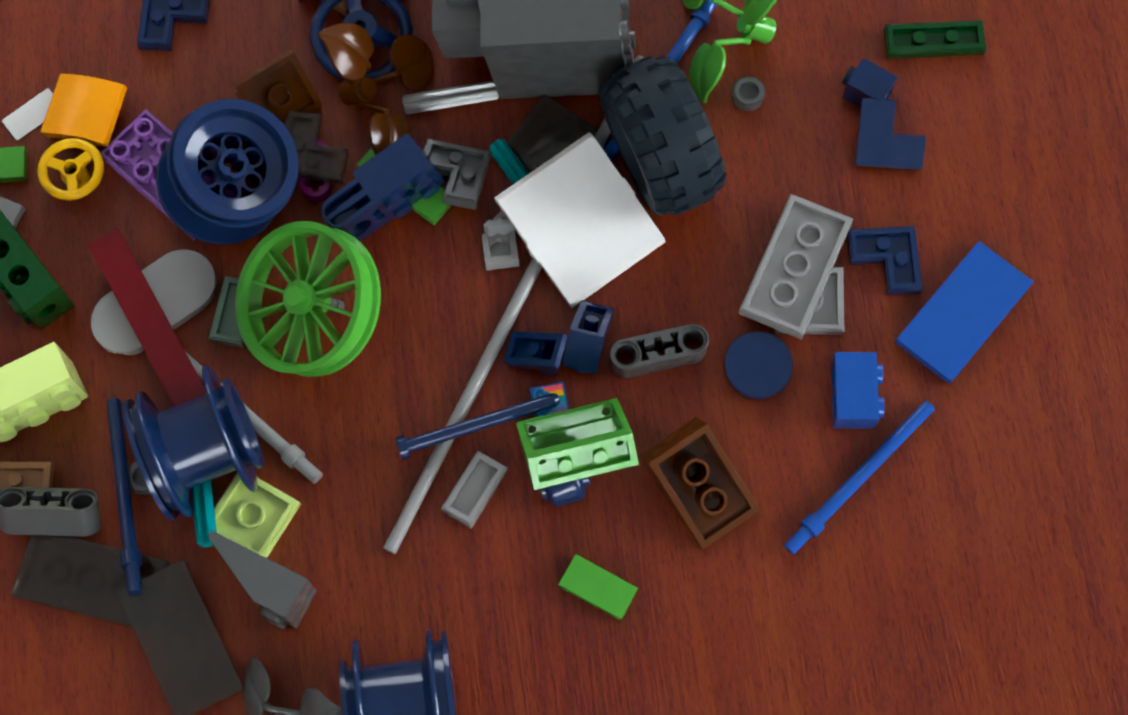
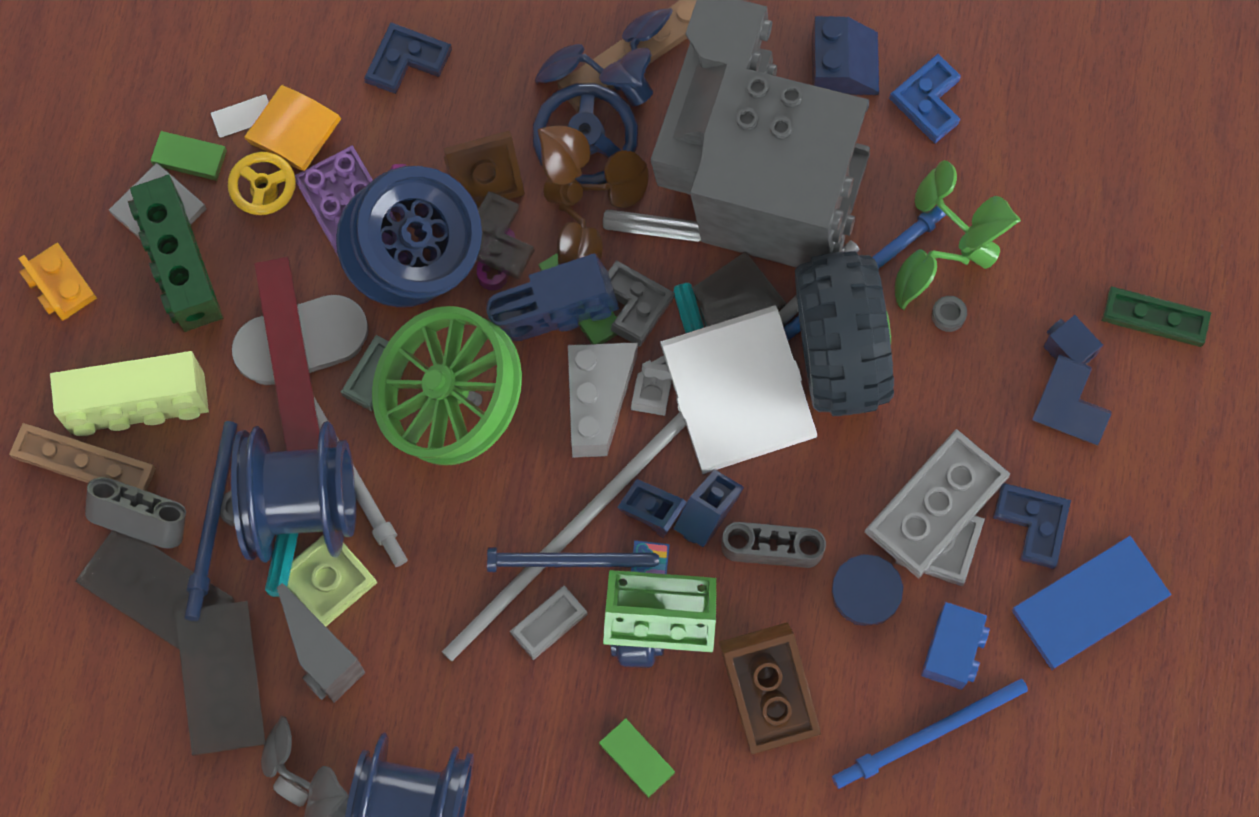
camera: 15 degrees right, 0 degrees up
(449, 263) = (597, 390): none -> light grey wedge

